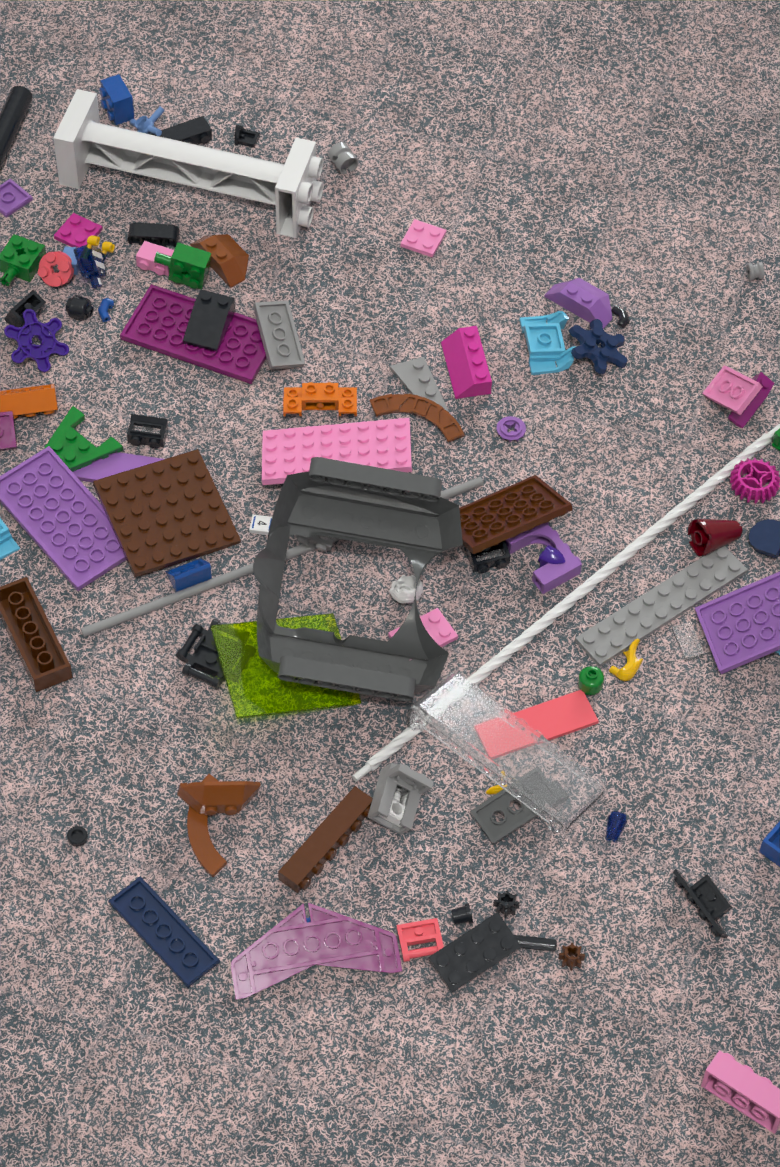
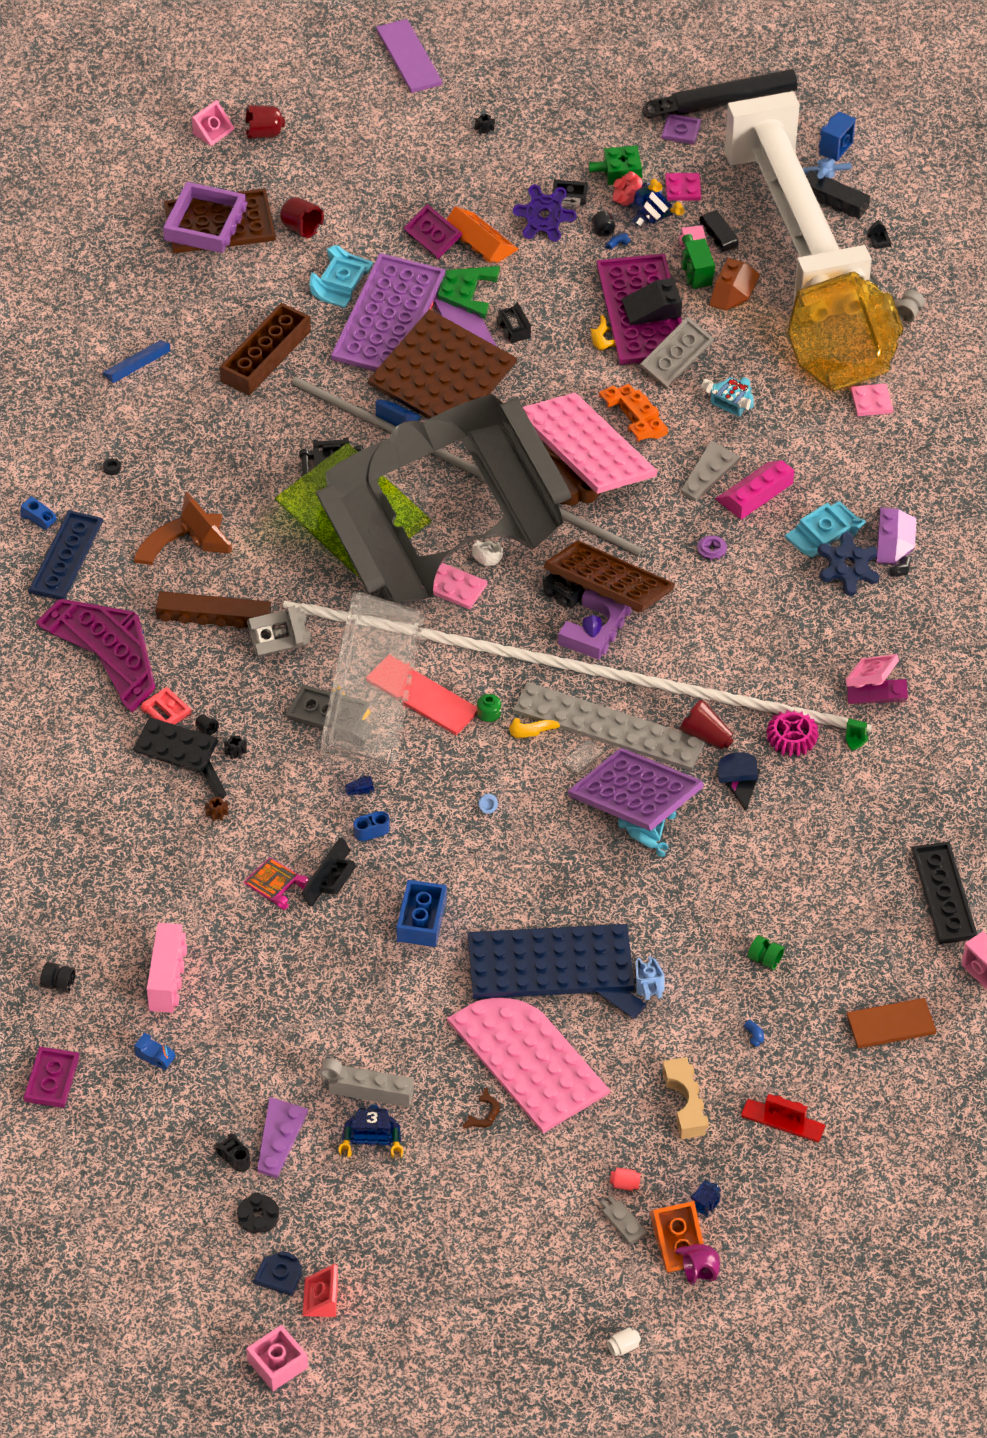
camera: 60 degrees right, 5 degrees down
(95, 929) = (37, 513): none -> blue leg
(213, 382) = (597, 336): none -> yellow piece
(354, 324) = (730, 394): none -> torso
(356, 214) = (844, 330): none -> clear yellow windscreen
(421, 407) = (681, 480): dark orange tile -> none
(669, 840) = (371, 825): none -> blue beam
(681, 953) = (273, 880): none -> flag
(696, 737) = (488, 803): none -> light blue tile

